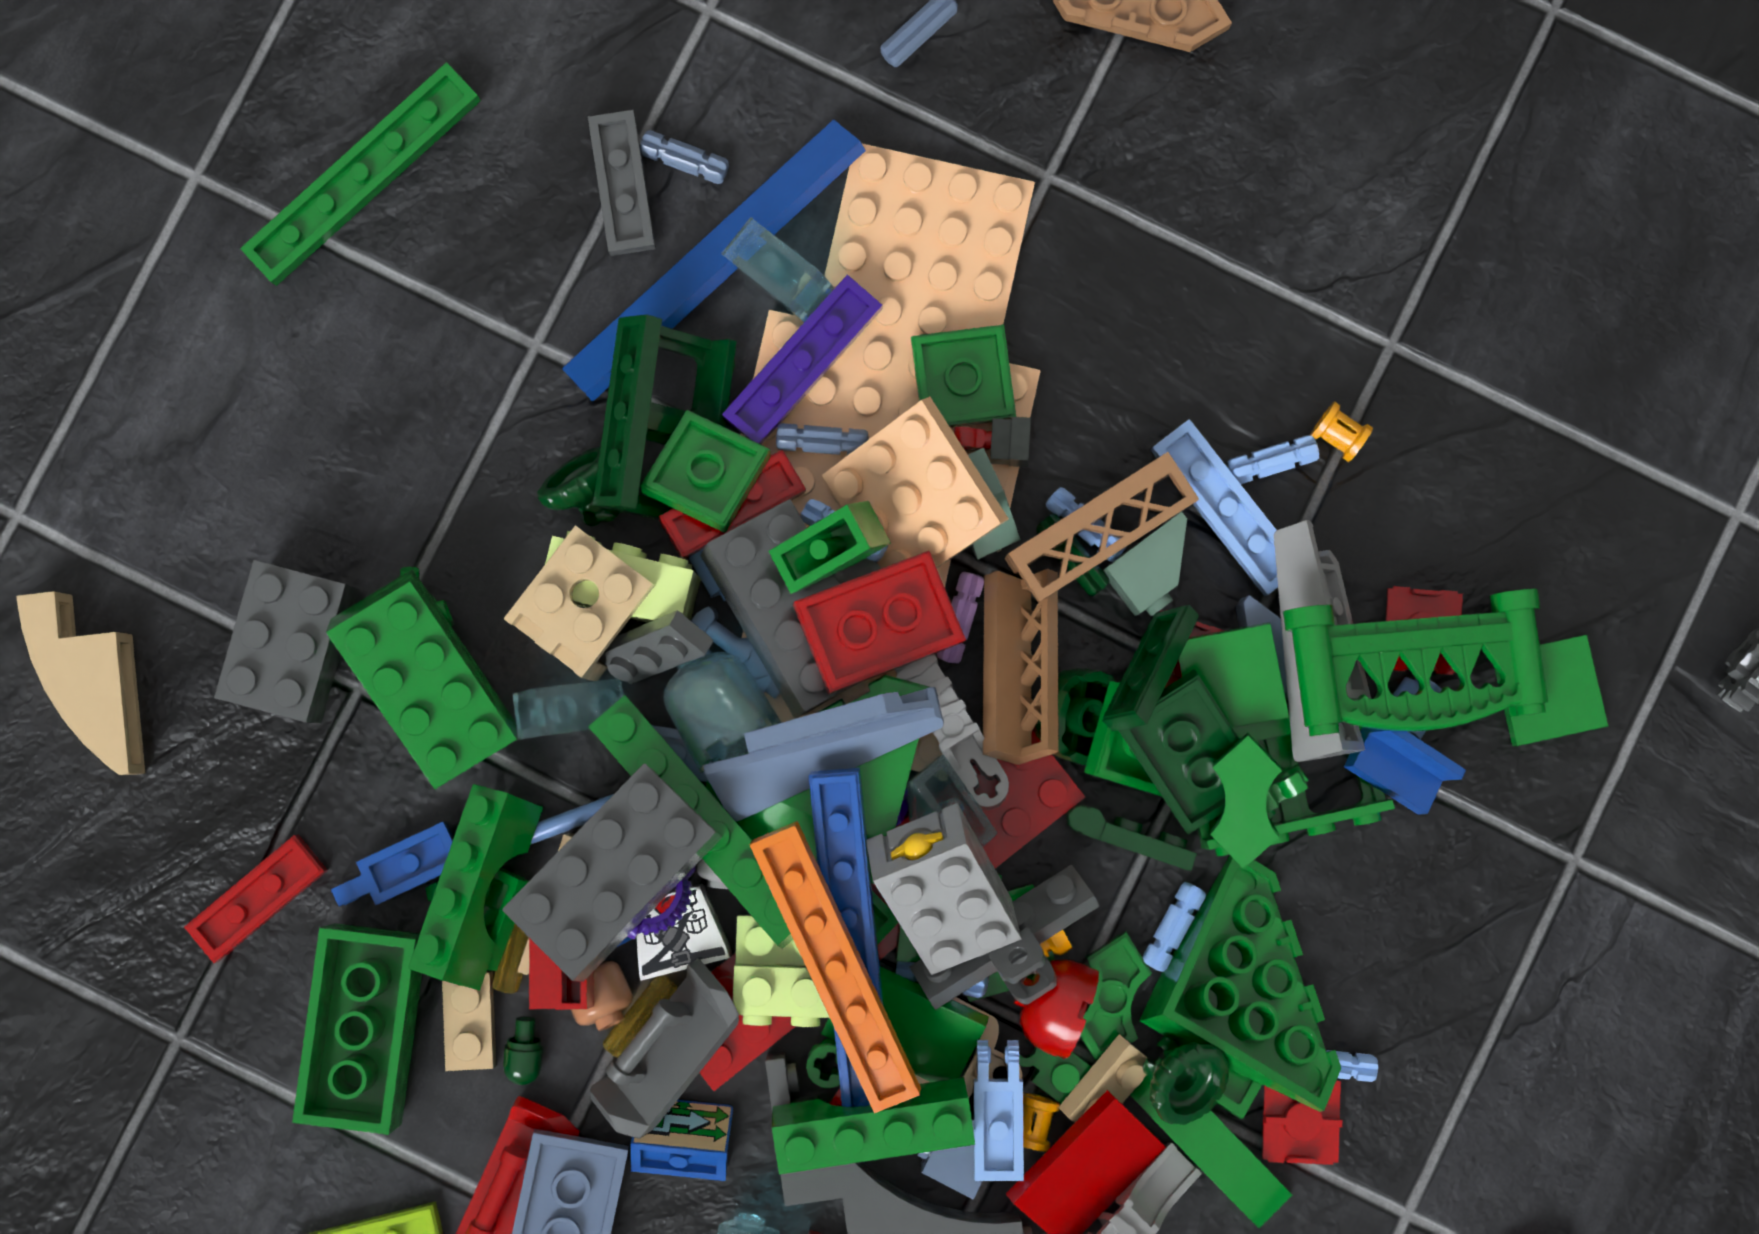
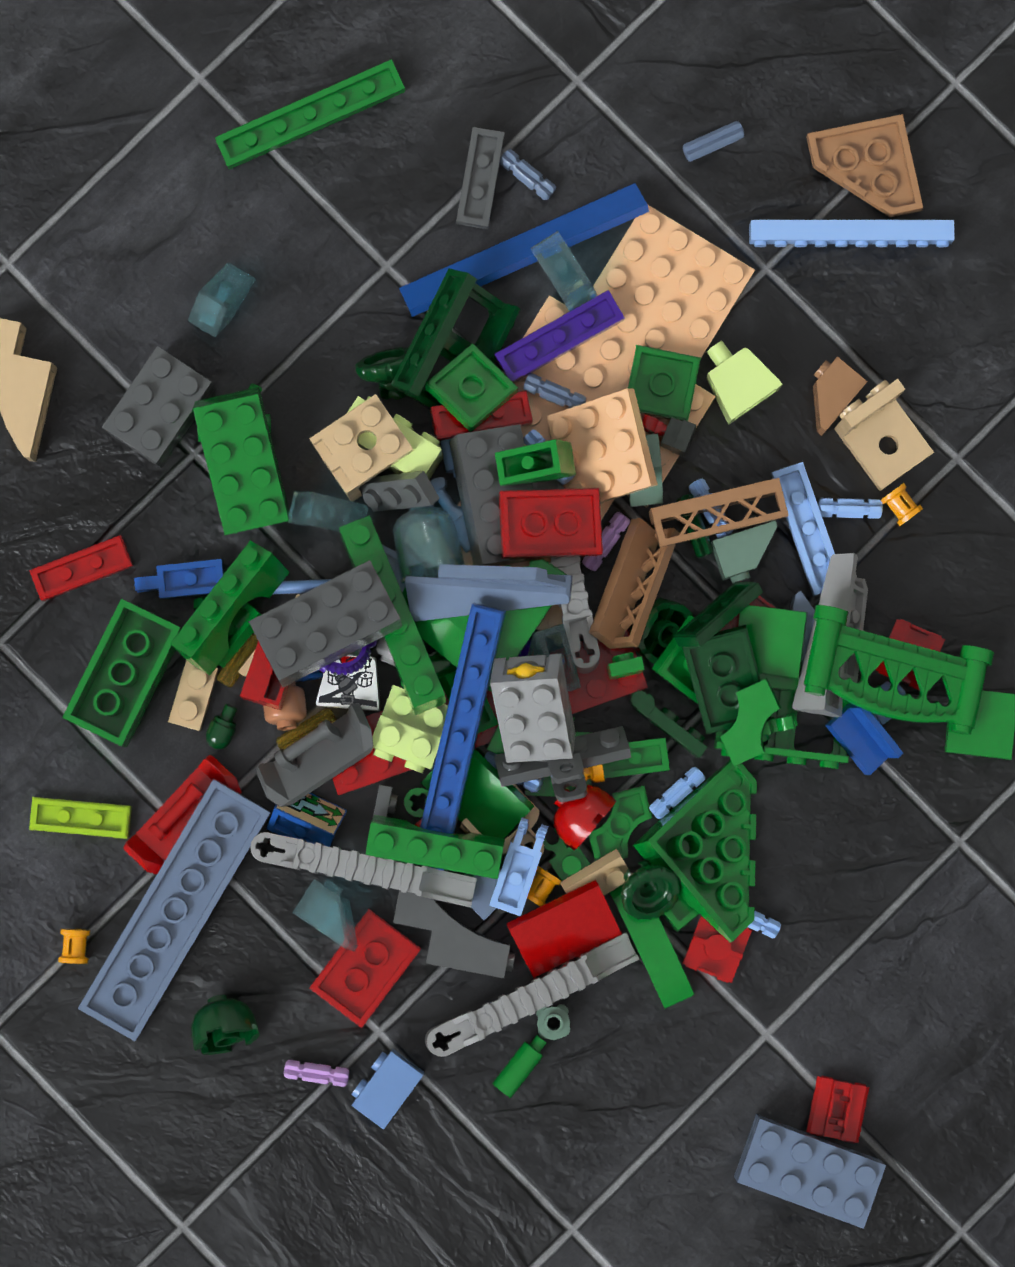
camera: 25 degrees right, 0 degrees up
(322, 466) = (220, 299): none -> clear light blue slope
(766, 1192) = (352, 865): none -> light grey piece
(835, 967) = (447, 732): orange plate -> none
(1048, 783) = (624, 665): none -> green plate
(1065, 338) = (739, 381): none -> yellowish green torso
(1118, 893) = (646, 757): none -> green plate
(1145, 88) = (851, 232): none -> light blue piece
(1198, 310) = (834, 391): none -> medium nougat slope
(1275, 322) = (877, 418): none -> tan bracket

